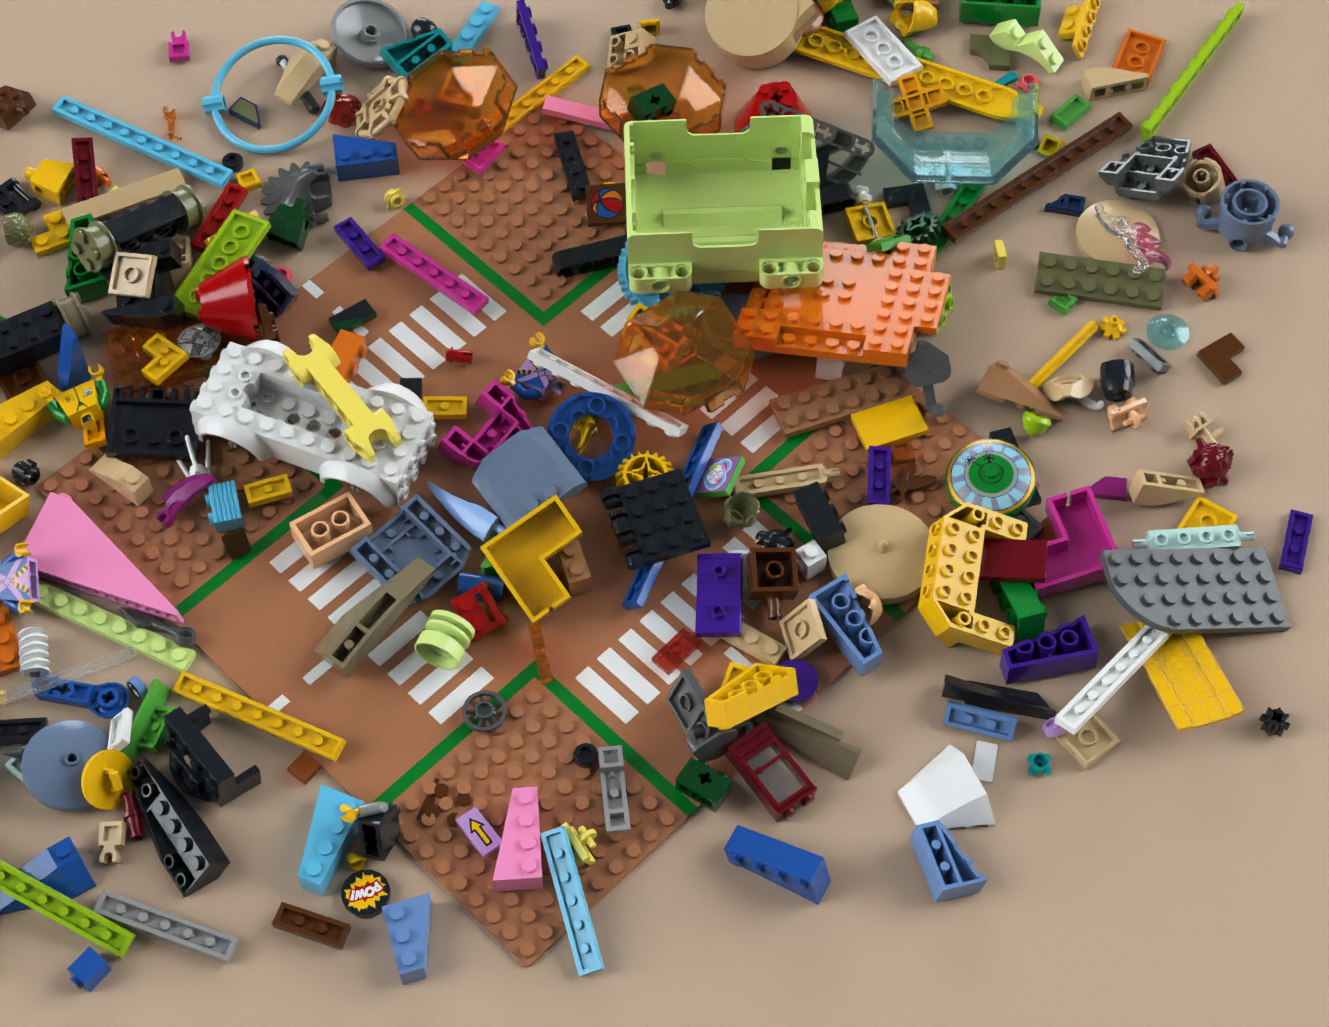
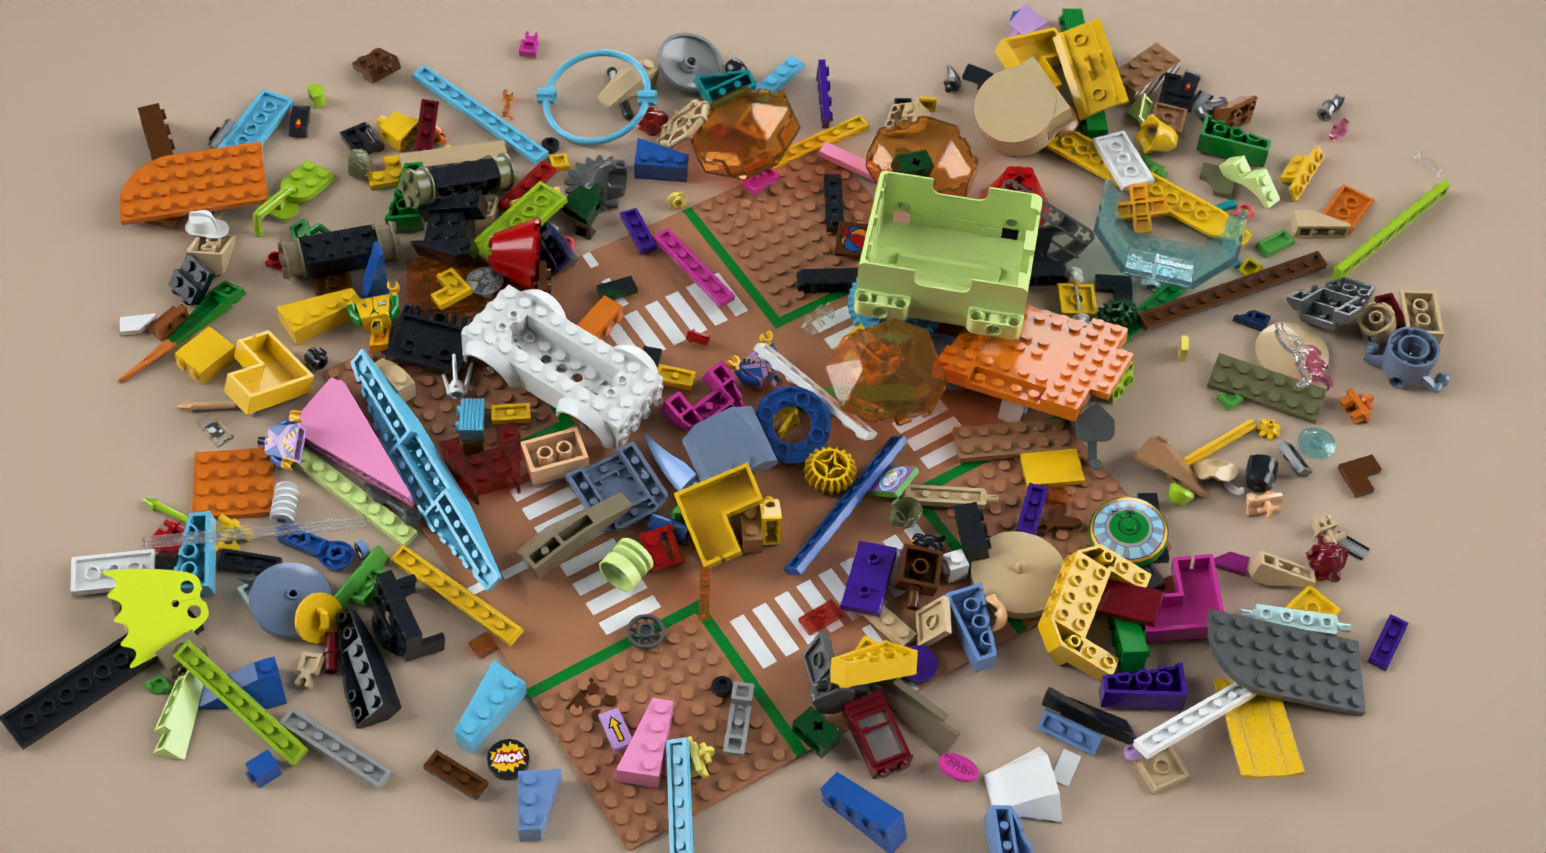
camera: 10 degrees right, 5 degrees down
(120, 730) = (339, 580): white tile -> none
(132, 275) = (442, 216): tan tile -> none
(181, 494) = (439, 401): magenta piece -> none
(187, 581) = (425, 473): none -> medium azure wedge
(246, 112) = (571, 107): tile -> none
(258, 561) = (487, 469): none -> clear red wedge
(296, 255) = (583, 230): none -> dark brown slope
(362, 424) = (600, 373): light yellow piece -> none
(377, 831) = (530, 707): black torso -> none
(583, 311) = (822, 314): none -> clear hinge
(592, 544) = (771, 512): none -> yellow torso
(656, 517) = (831, 503): black hinge -> none
(868, 788) = (958, 767): none -> dark pink piece
(887, 243) = (1086, 318): bright green tile -> none
(1042, 758) = (1117, 776): teal plate -> none
(1236, 442) = (1354, 547): none -> sticker
(1248, 159) = (1422, 311): none -> tan slope
(1274, 722) = (1331, 790): black gear -> none

